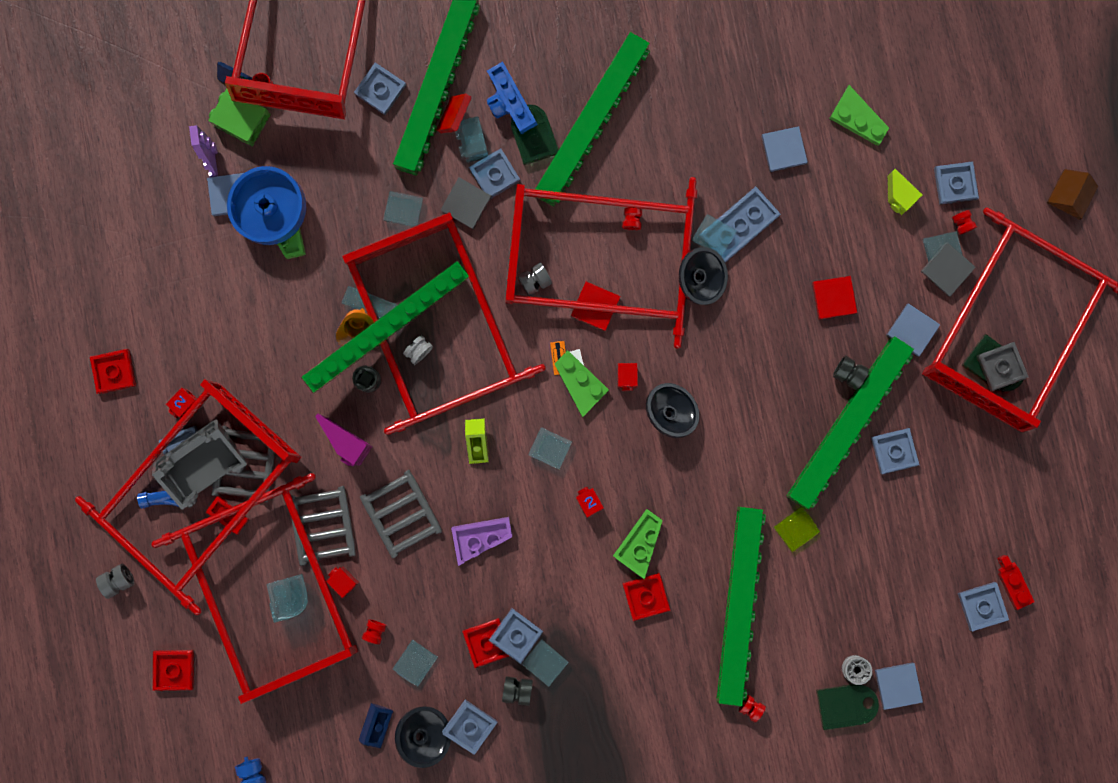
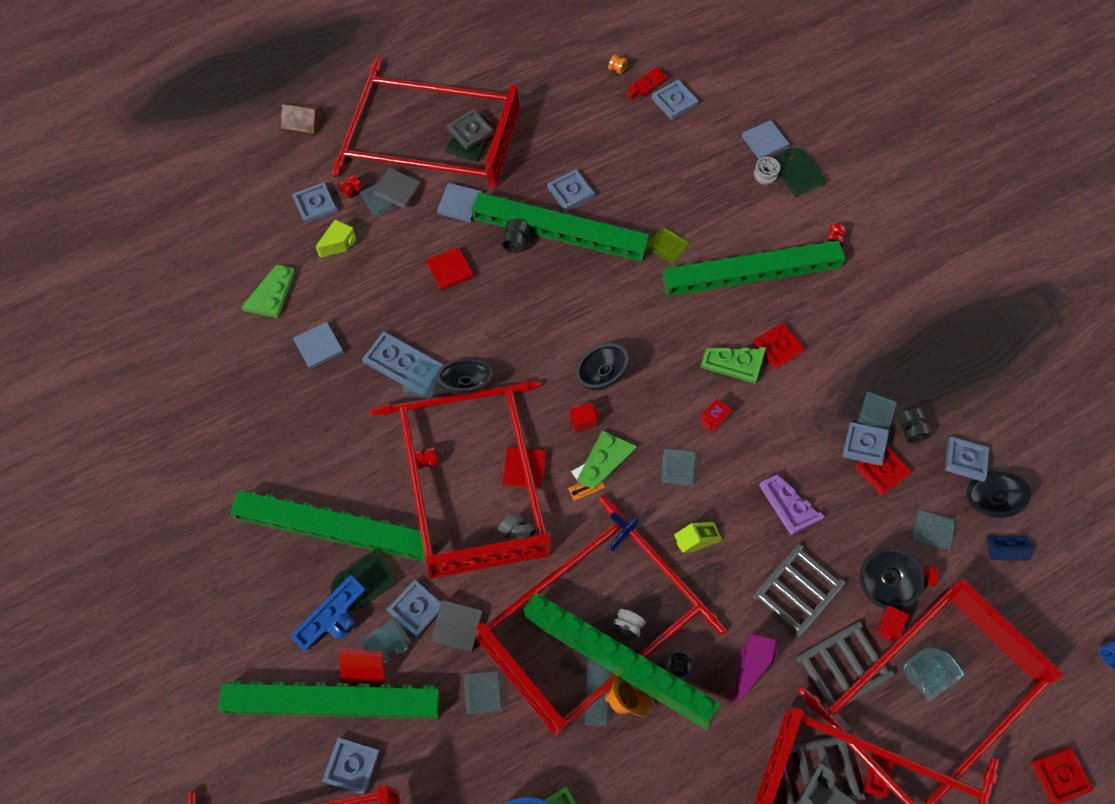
camera: 110 degrees left, 20 degrees down
(372, 592) = (895, 593): none -> black dish
(504, 377) = (626, 529): none -> clear blue piece
(1049, 558) = (617, 64): none -> orange wheel

